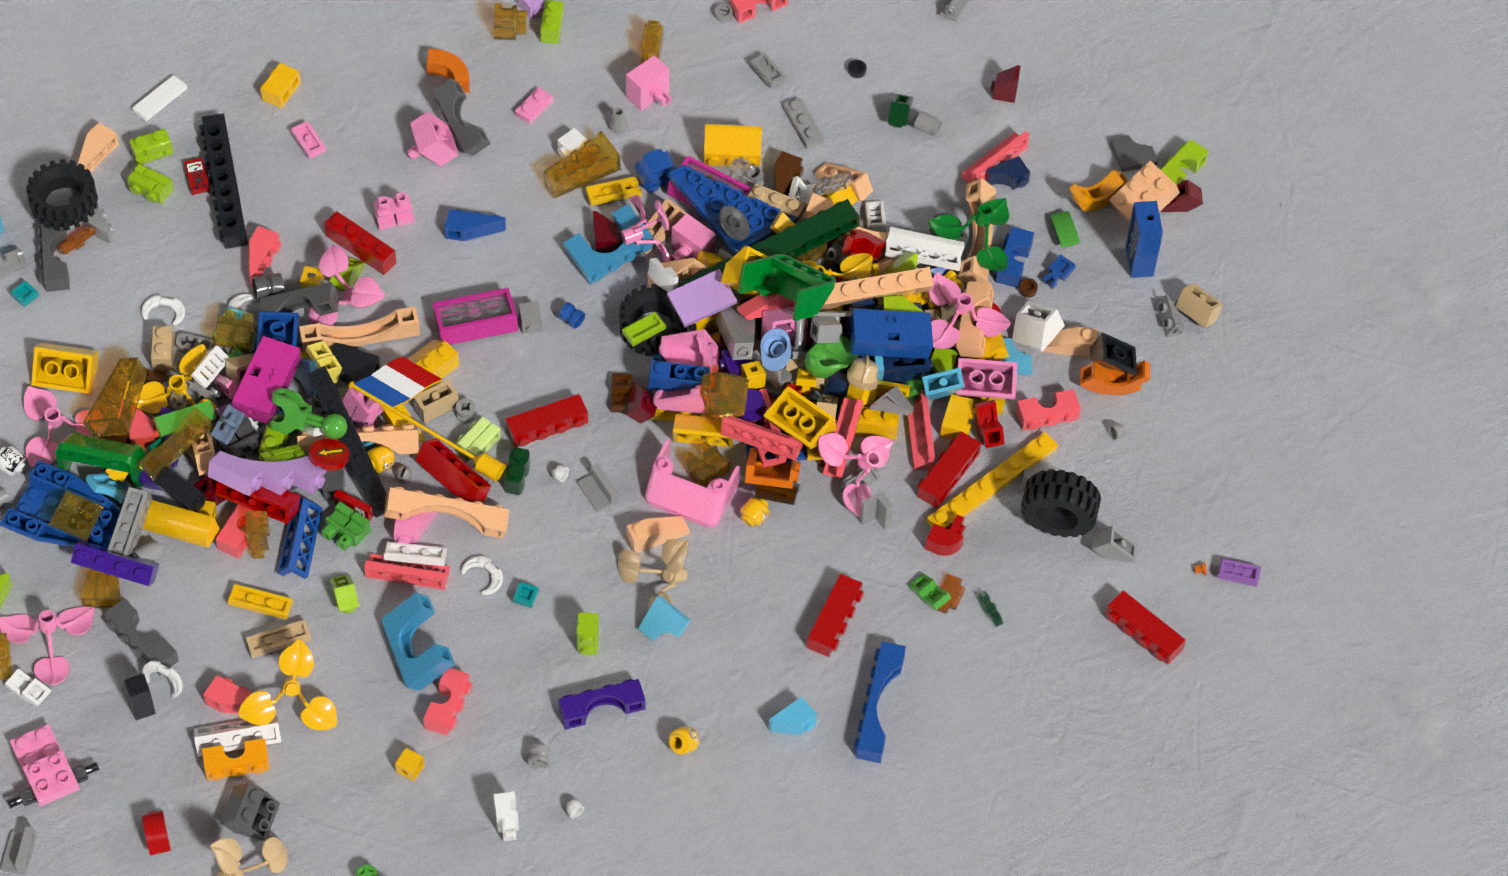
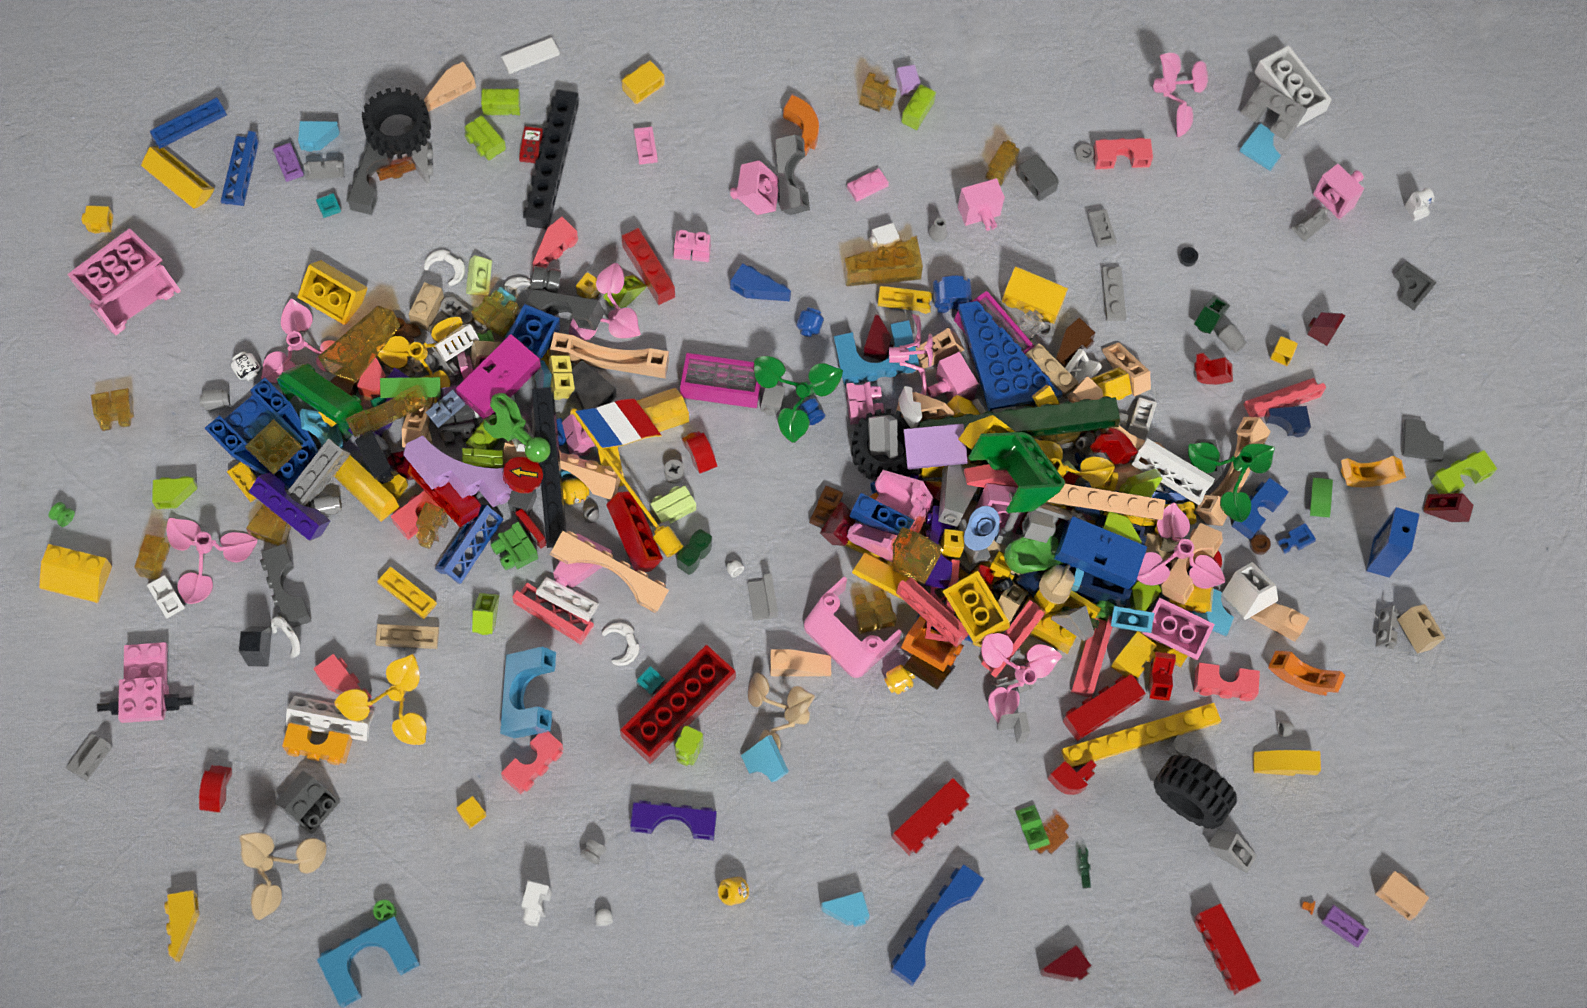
camera: 20 degrees right, 10 degrees up
(57, 560) = (243, 478): none -> yellow plate
(199, 307) = (478, 276): none -> yellowish green slope
(436, 401) = (649, 453): tan brick -> none
(483, 383) = (700, 451): none -> red brick
(534, 239) = (810, 322): none -> blue head
(547, 420) = (744, 511): red brick -> none
(560, 602) = (678, 704): none -> red brick
(572, 277) = (822, 382): none -> green plant
(612, 290) = (860, 401): none -> bright pink hips
(643, 329) = (870, 454): lime tile -> none
(647, 303) = (883, 436): none -> light grey panel
(690, 46) = (1038, 177): none -> dark grey brick
(734, 223) = (998, 380): dark grey dish -> none
(832, 184) = (1112, 370): clear plate -> none
(923, 156) = (1213, 371): none -> red brick
(978, 118) = (1284, 351): none -> yellow piece
(1012, 693) = (1068, 966): none -> dark red slope
(1069, 24) = (1413, 285): none -> dark grey tile
(1114, 354) = (1314, 651): black slope -> none
(1131, 457) = (1287, 762): none -> yellow slope
(1146, 185) = (1414, 491): light nougat brick -> none
(1277, 529) = (1402, 895): none -> light nougat brick

